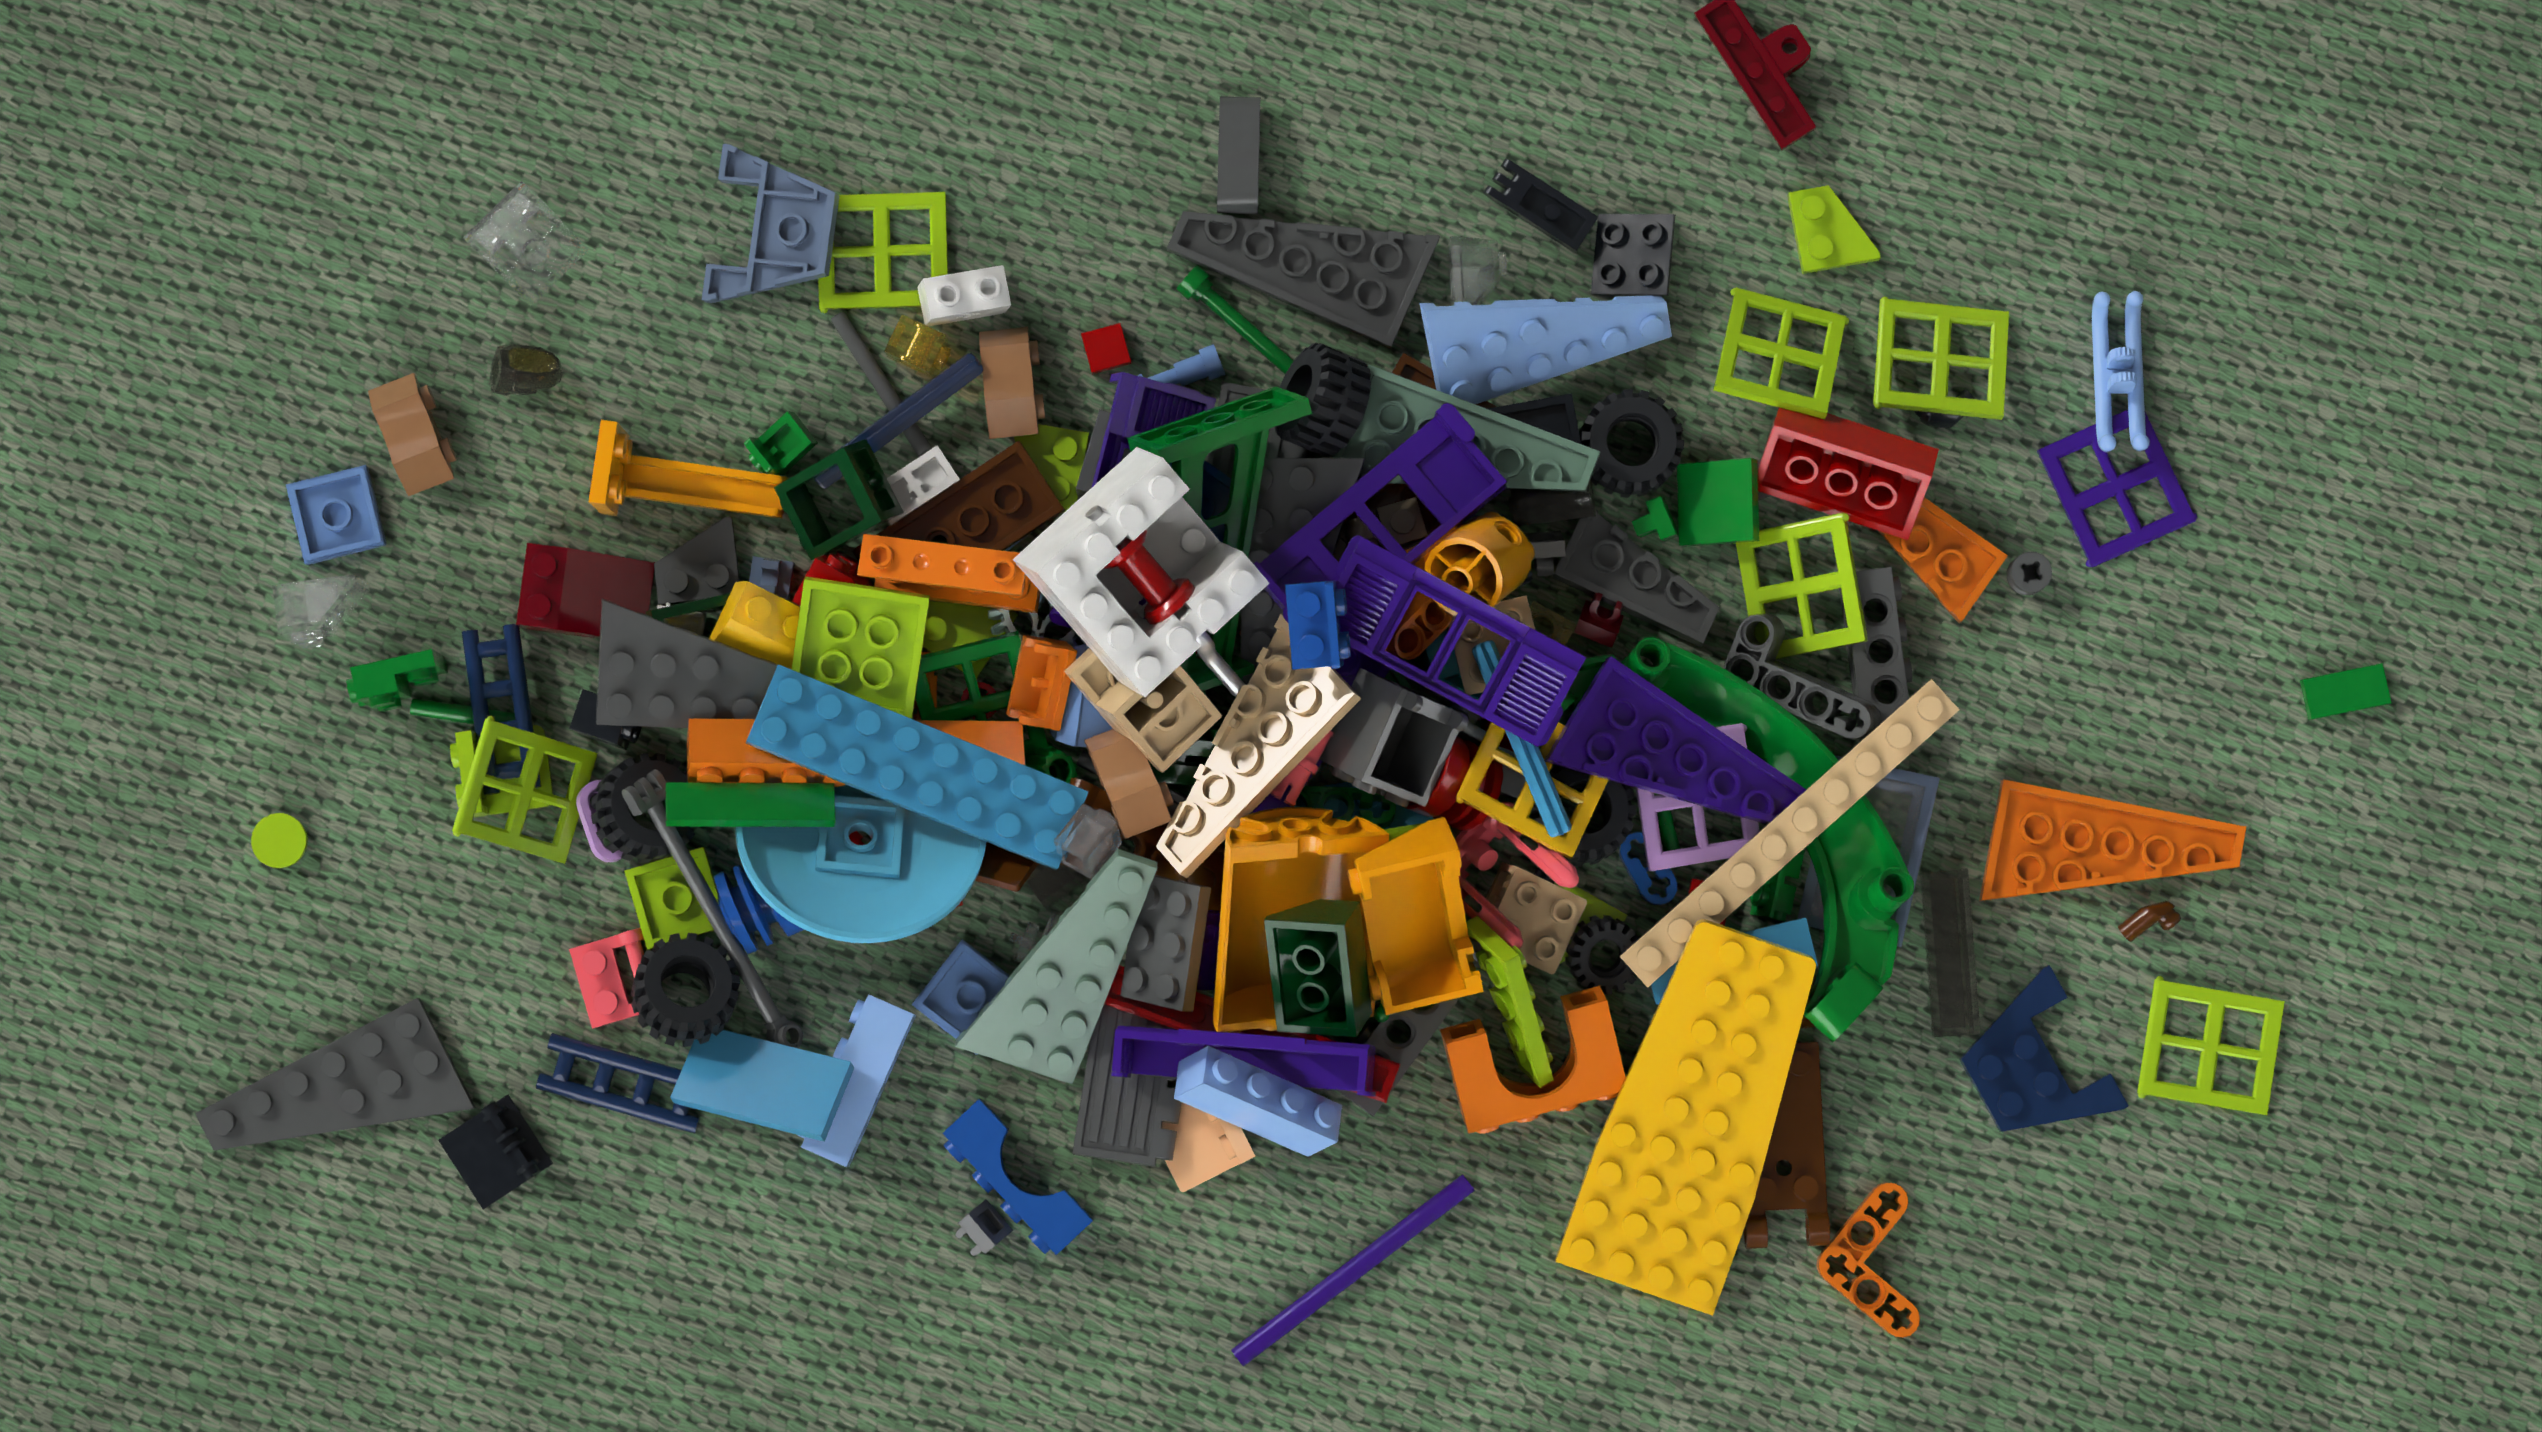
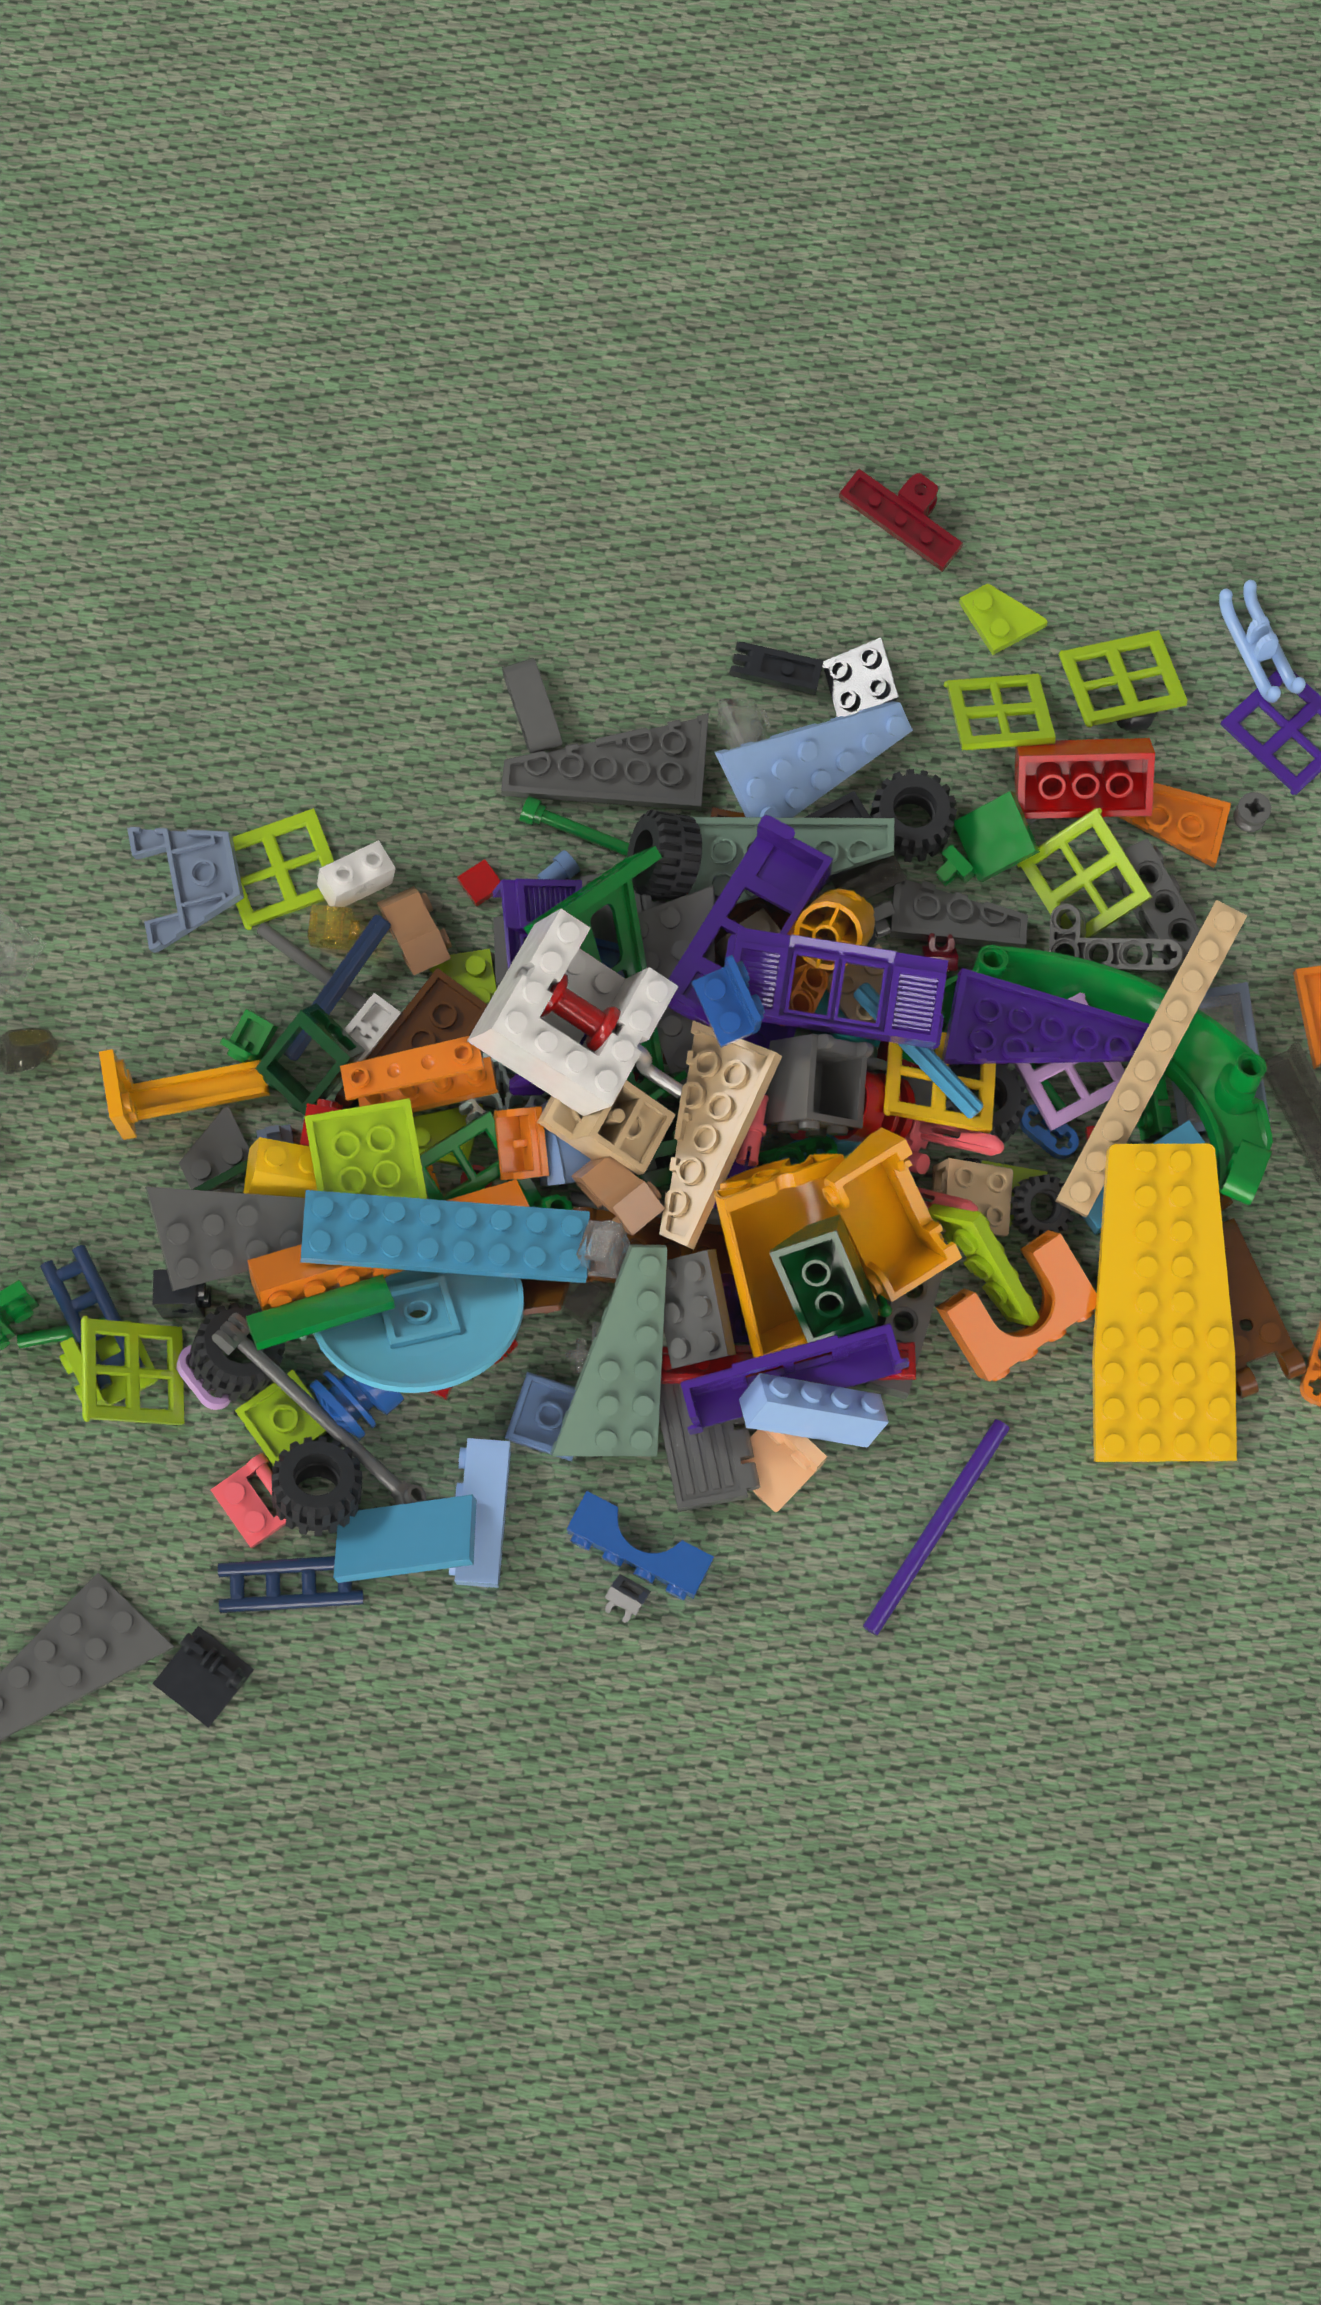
camera: 15 degrees left, 10 degrees down
(566, 588) = (115, 1204): dark red slope -> none

